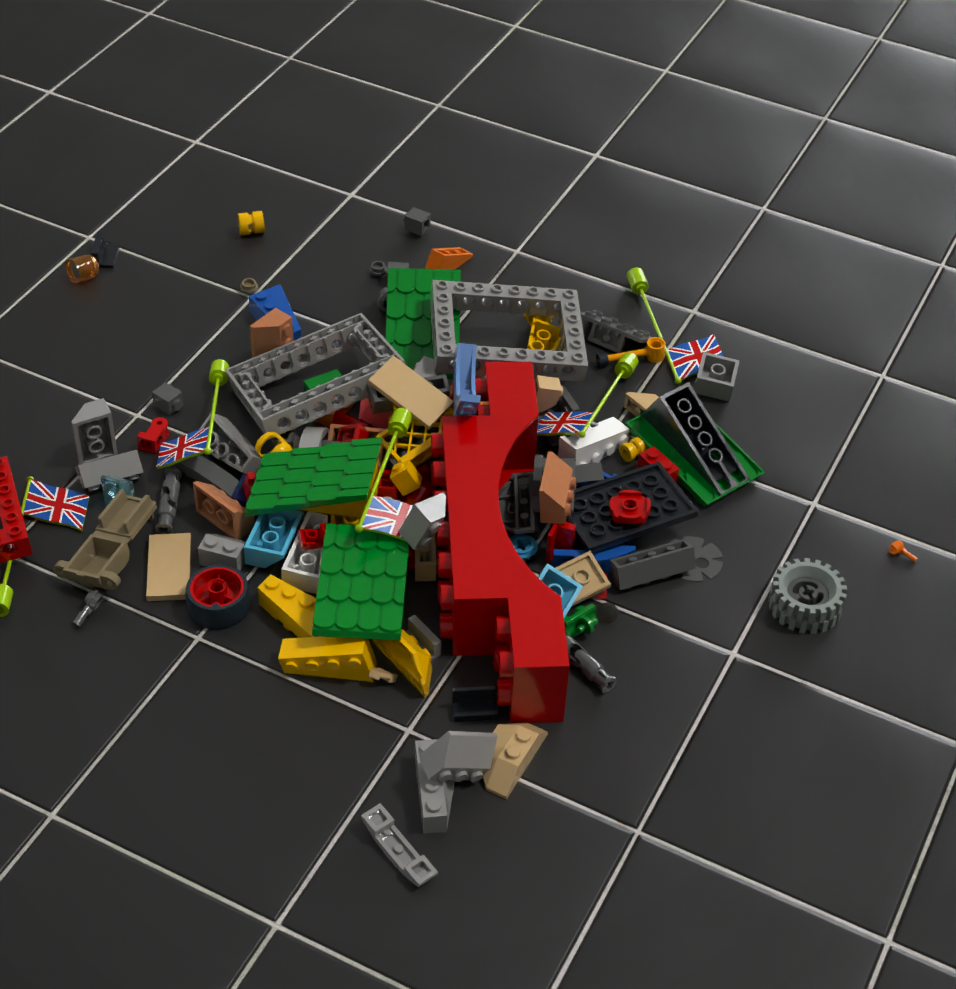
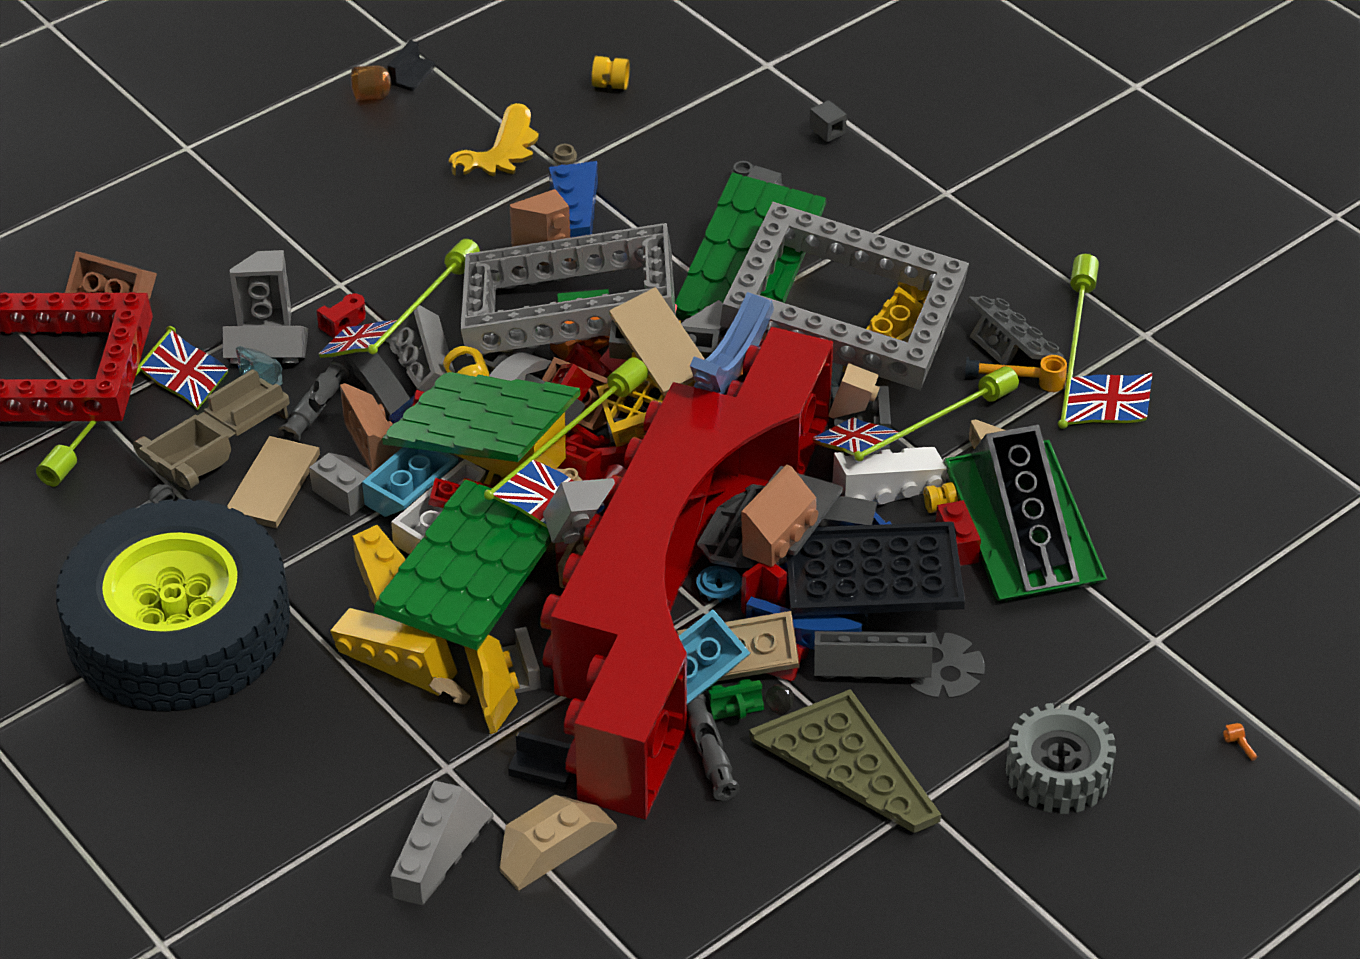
camera: 25 degrees right, 0 degrees up
(153, 675) = (173, 604): none -> black wheel
(167, 399) = (383, 273): dark grey brick -> none
(209, 289) = (509, 146): none -> yellow animal
(217, 597) = (307, 533): wheel -> none
(396, 847) = (349, 900): light grey slope -> none
(405, 477) = (605, 449): yellow brick -> none
(447, 258) = (839, 181): orange slope -> none
(459, 756) = (471, 815): light grey slope -> none
(637, 514) = (878, 582): red plate -> none
(668, 633) = (849, 752): none -> olive wing
(716, 376) = (1112, 431): light grey brick -> none

